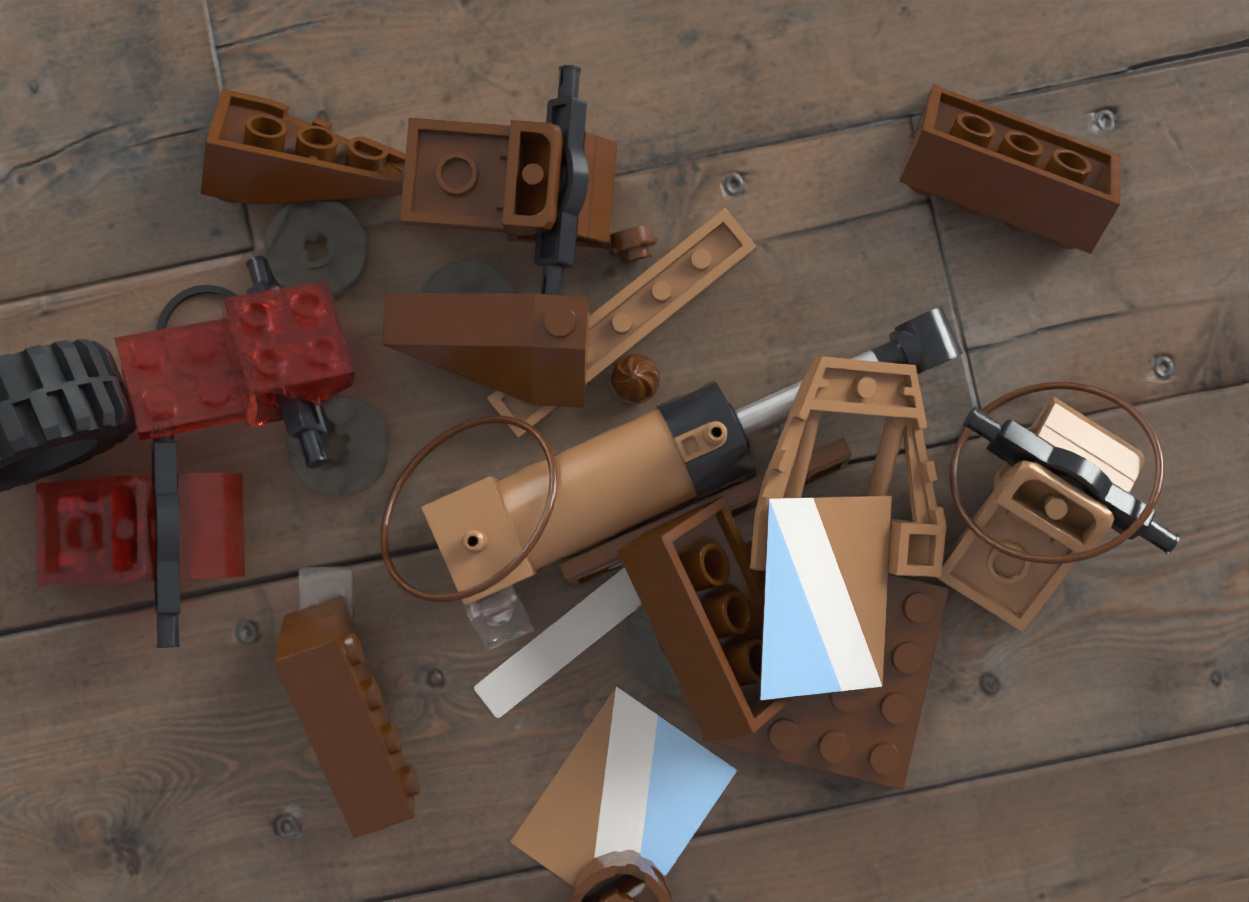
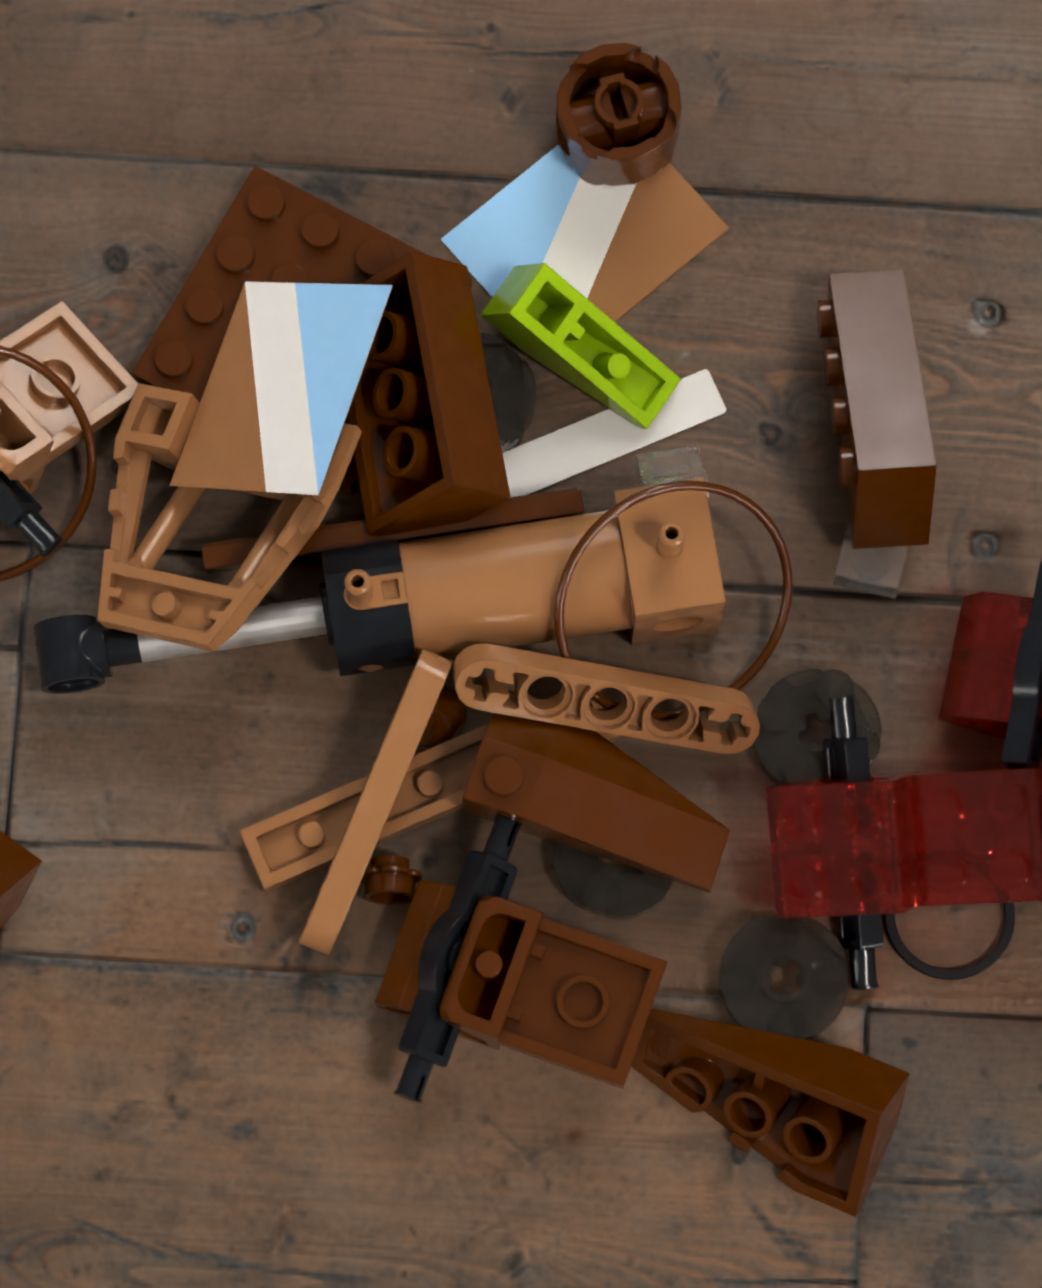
camera: 170 degrees left, 10 degrees down
(419, 427) = (584, 679): none -> medium nougat beam
(601, 708) = (579, 343): none -> lime slope
(657, 289) = (375, 802): none -> medium nougat beam

